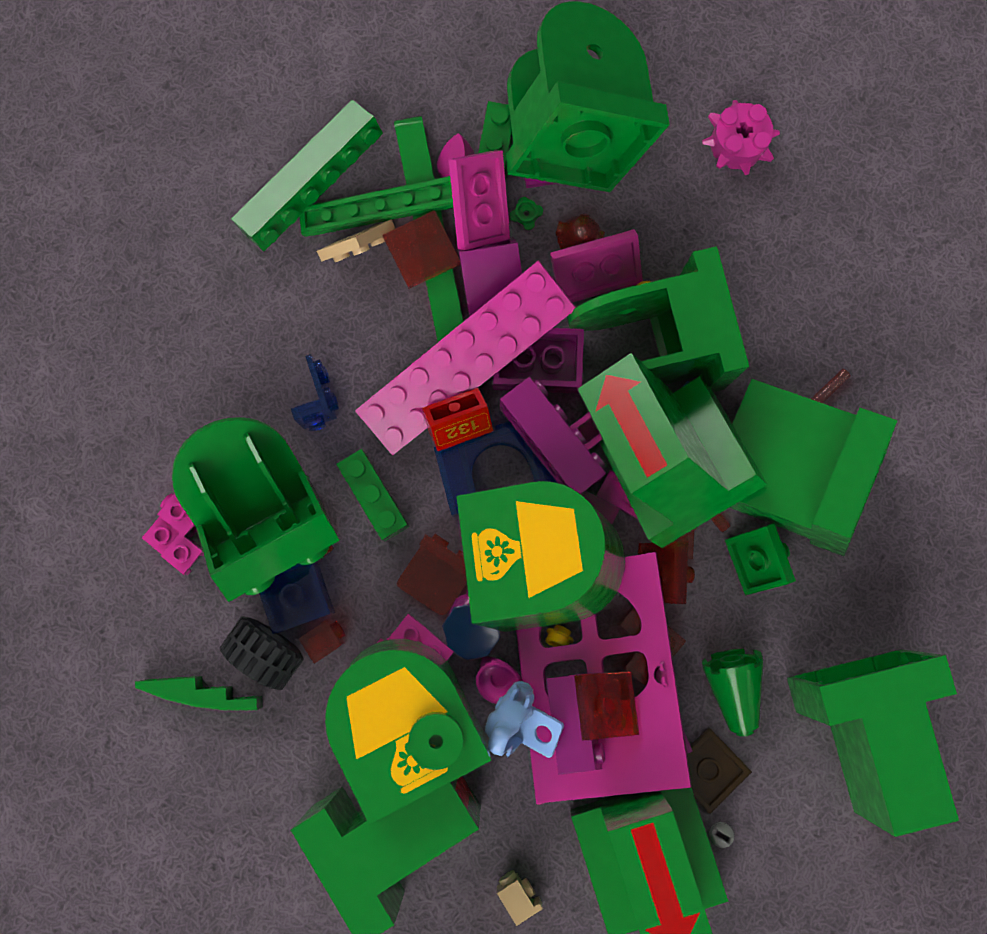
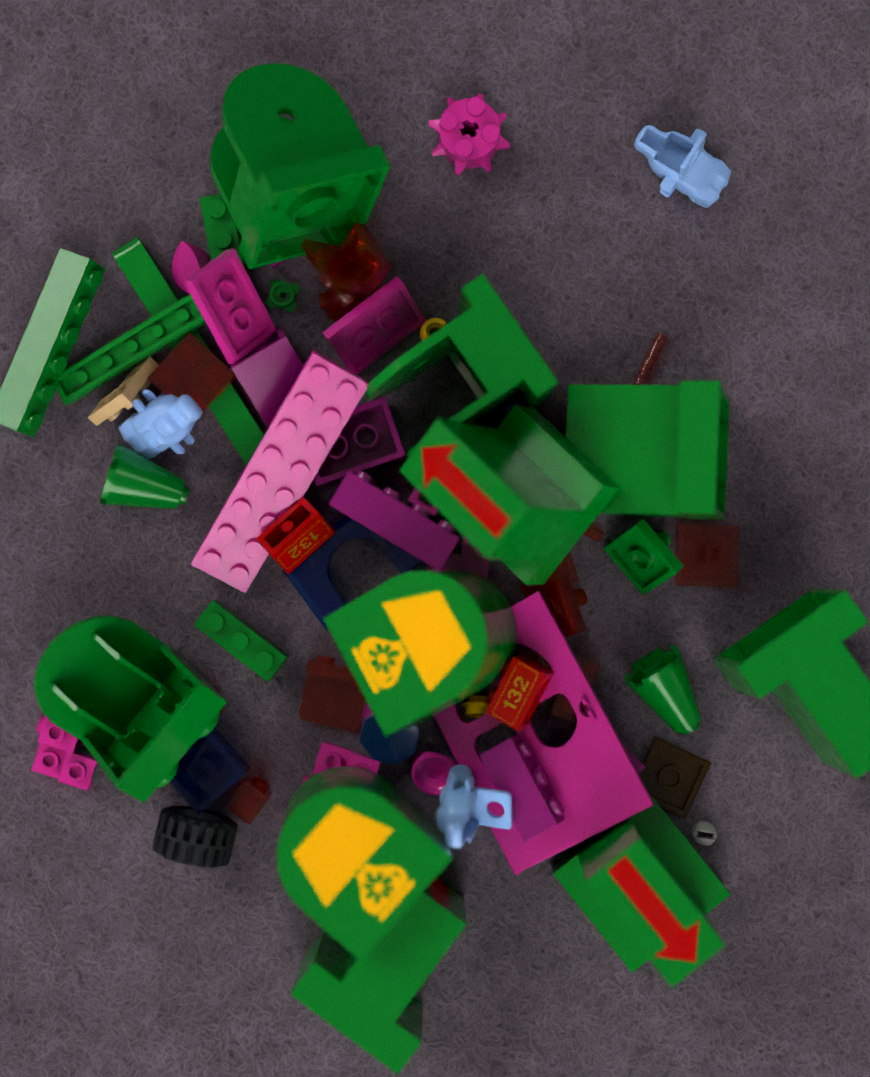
camera: 20 degrees left, 5 degrees up
(191, 692) = (141, 899): green slope -> none
(316, 413) = (153, 583): clear blue bracket -> none
(340, 324) = (141, 483): none -> green cone
(378, 278) = (160, 423): none -> light blue piece
(435, 756) = (393, 876): green piece -> none
(517, 897) = (532, 968): tan brick -> none
(602, 207) = (354, 265): none -> clear red bracket
(604, 635) = (518, 692): none -> red brick
(606, 705) = (545, 759): clear red plate -> none
(818, 583) = (708, 555): none -> clear red tile
(920, 231) = (683, 164): none -> light blue piece

